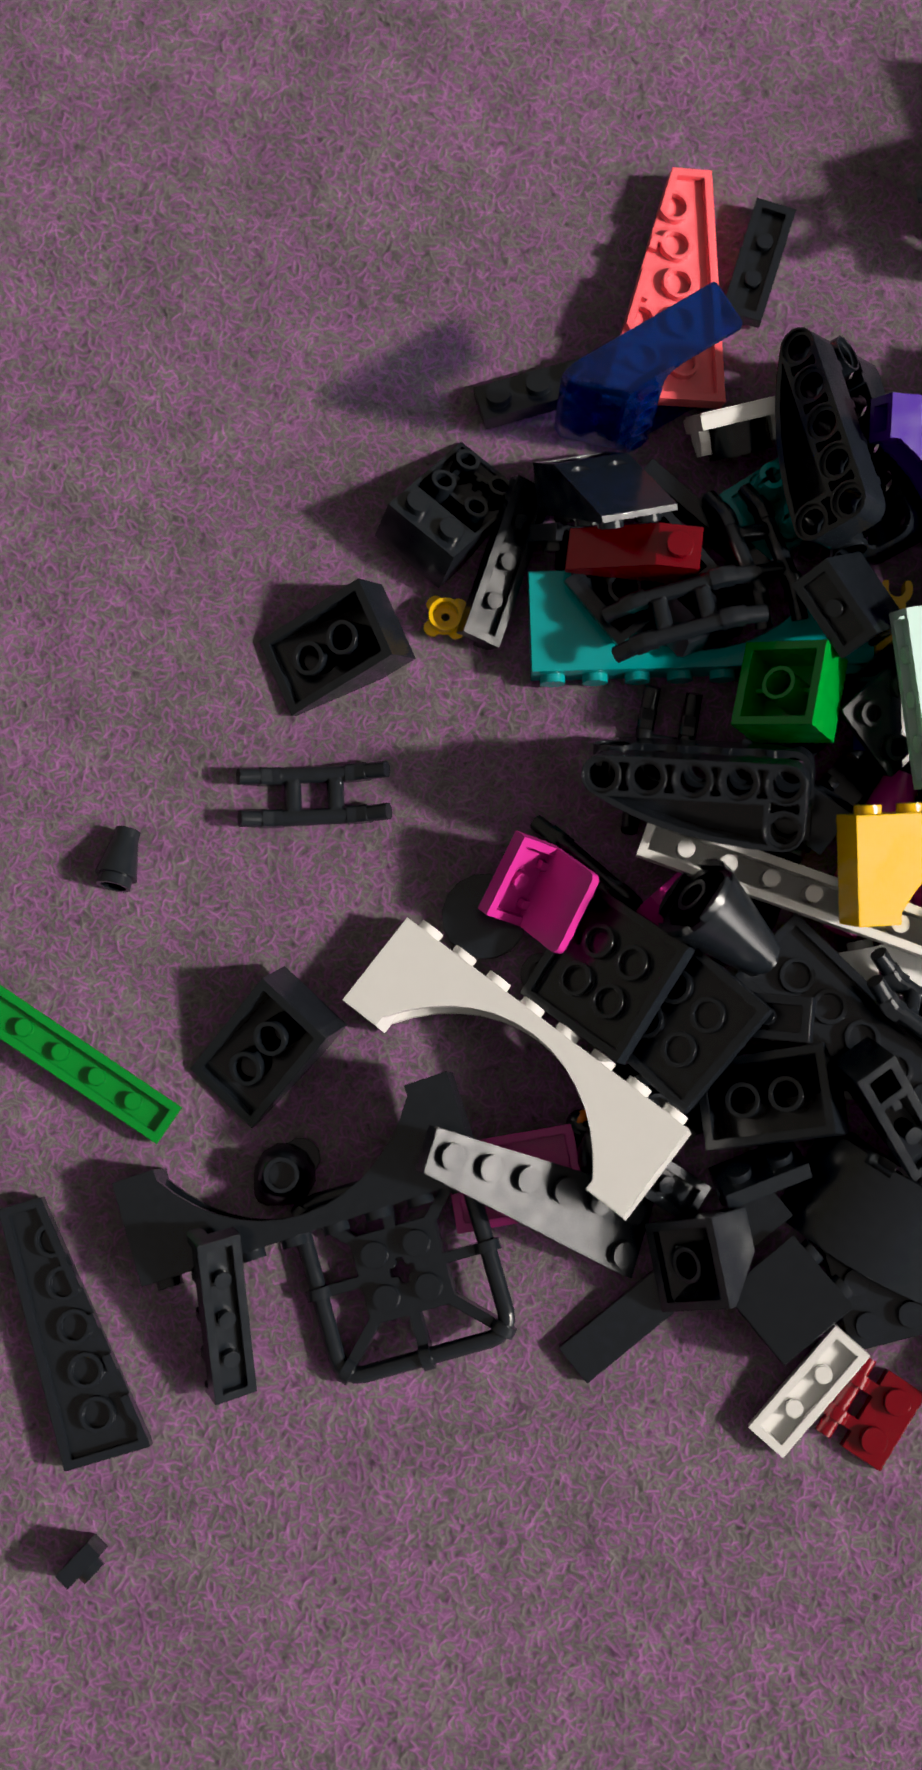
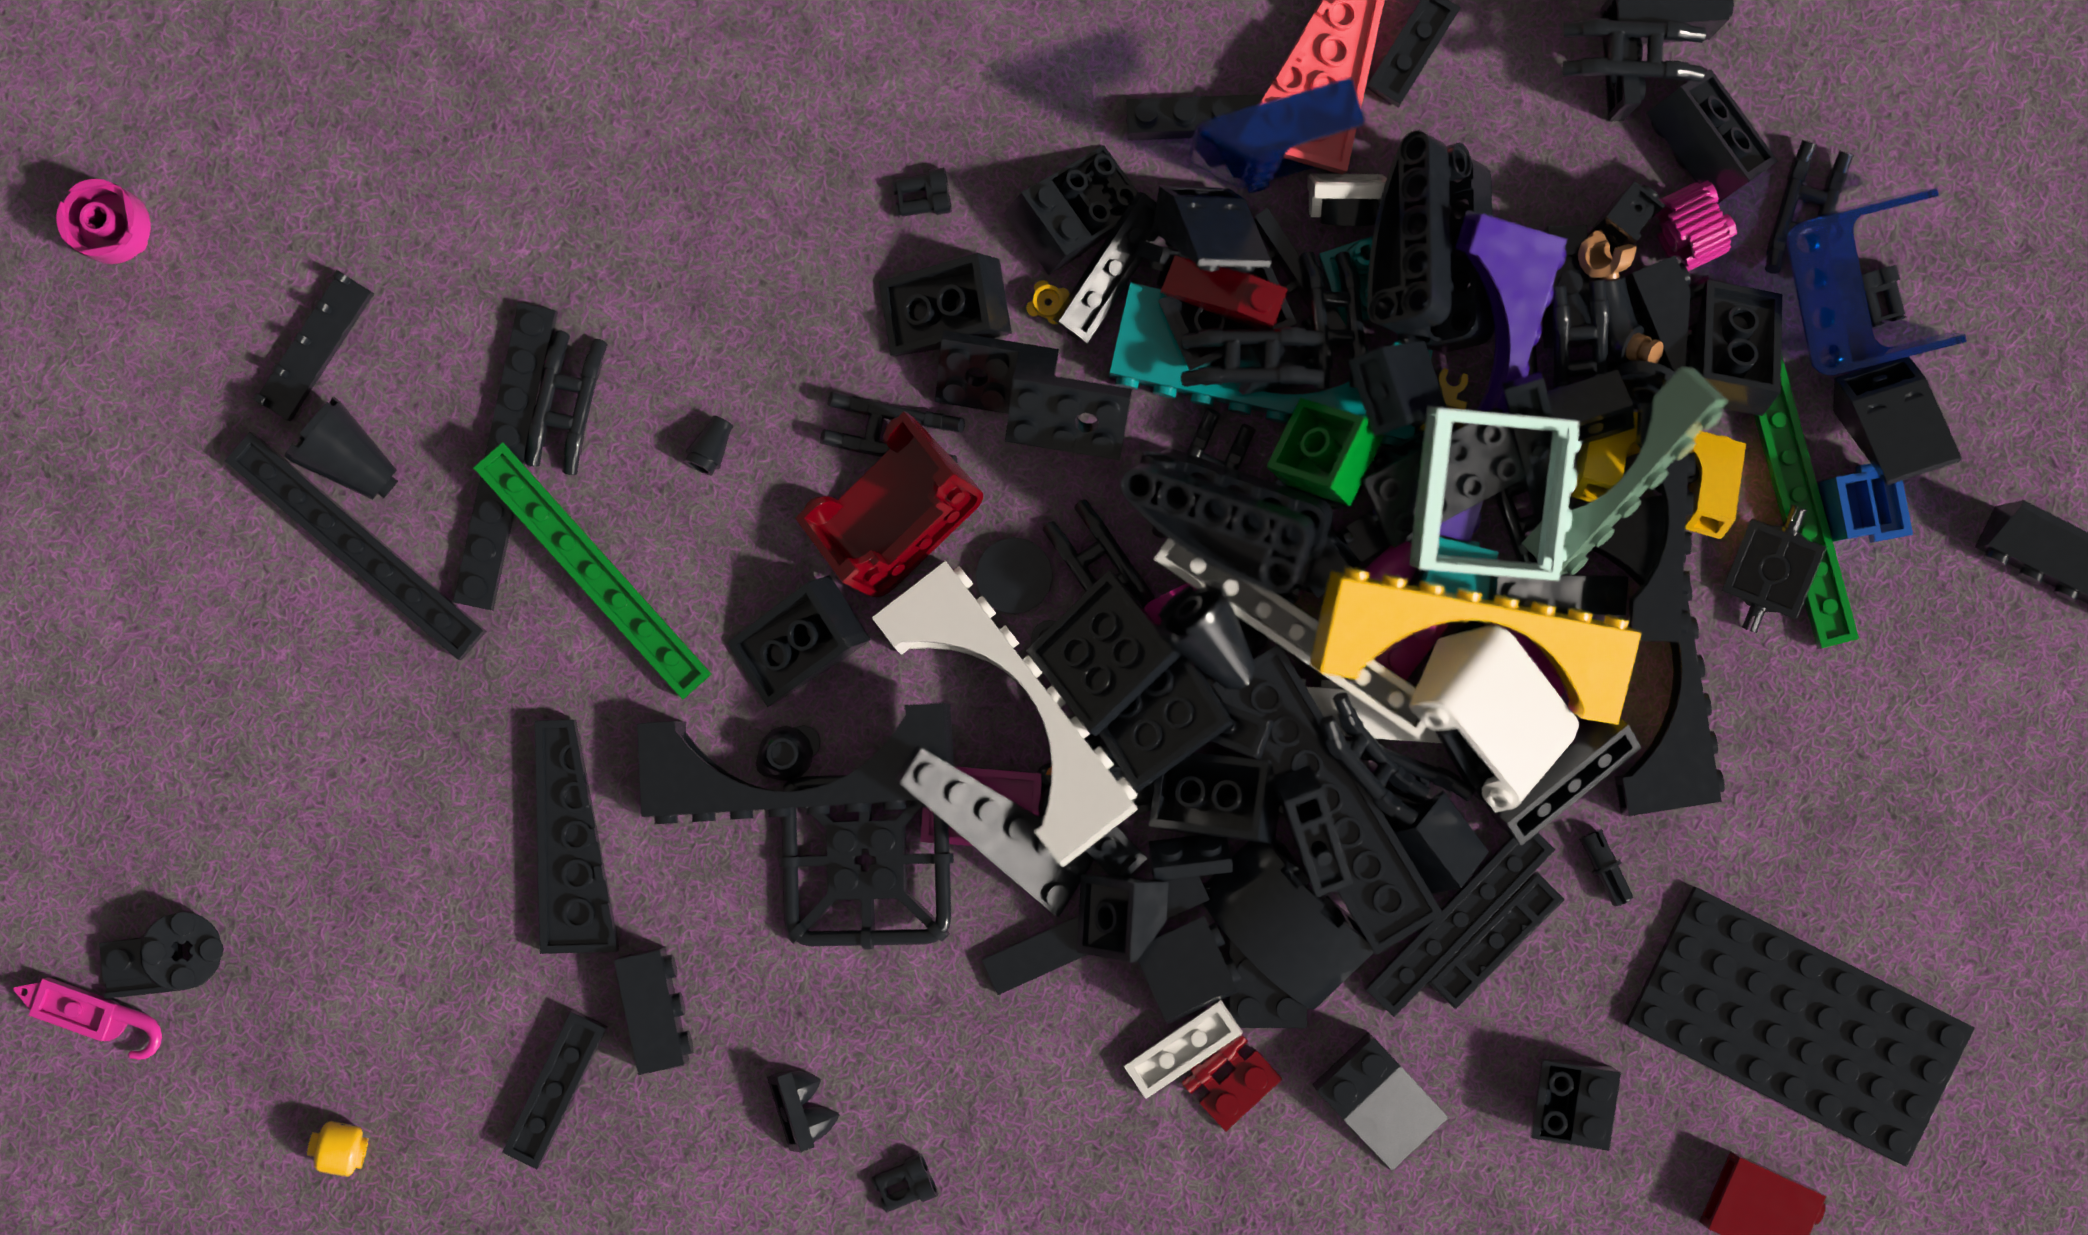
camera: 20 degrees right, 5 degrees up
(83, 1563) = (538, 1033): black plate -> none
(118, 1624) = (555, 1089): none -> black plate
(208, 1503) = (653, 1010): none -> black brick
(223, 1313) = (704, 857): black hinge -> none
(297, 531) = (937, 194): none -> black piece
(336, 879) = (892, 511): none -> dark red windscreen
(404, 1590) = (800, 1125): none -> black tile
(457, 715) = (1038, 403): none -> black bracket
(540, 891) = (1064, 567): dark pink bracket -> none
(553, 1617) = (918, 1178): none -> black piece

